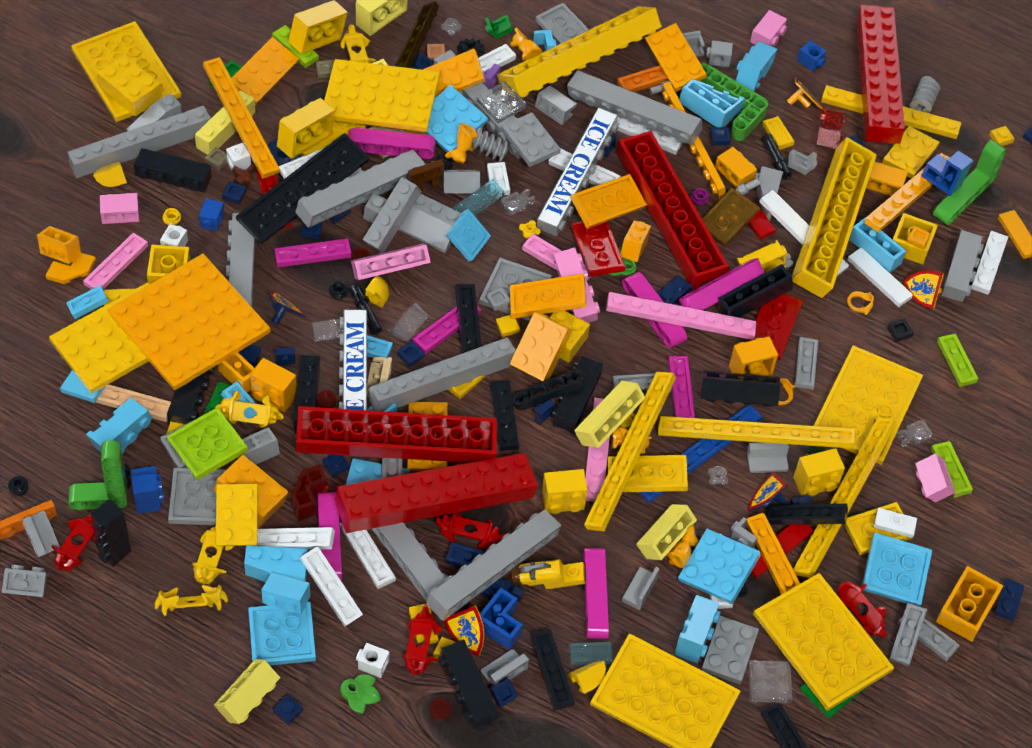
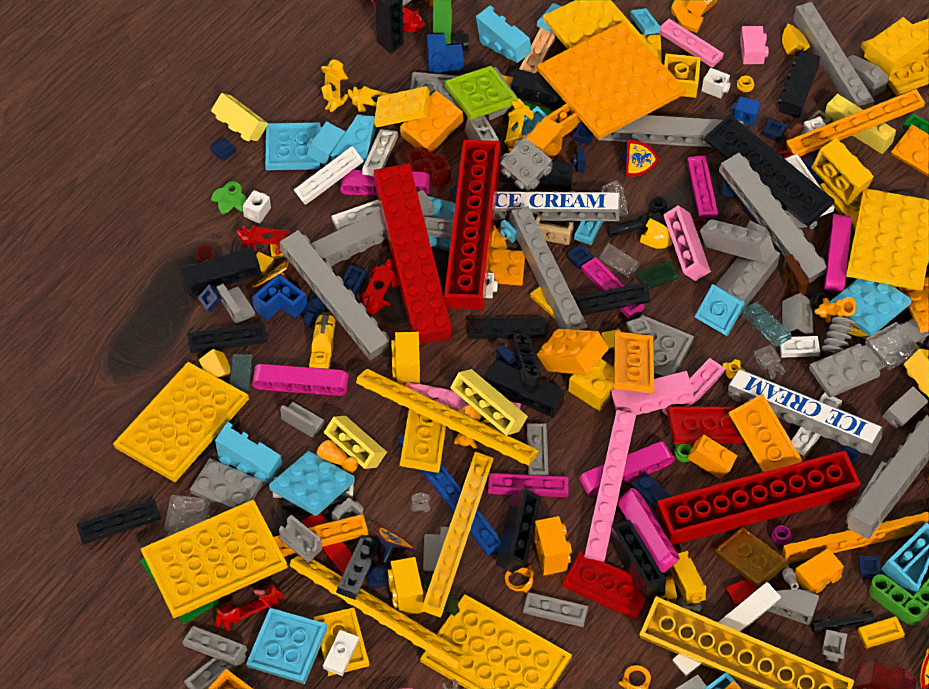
camera: 100 degrees right, 0 degrees up
(315, 388) = (525, 164): none -> light grey brick
(428, 289) = (658, 275): none -> clear green plate
(788, 565) = (300, 539): none -> light grey hinge

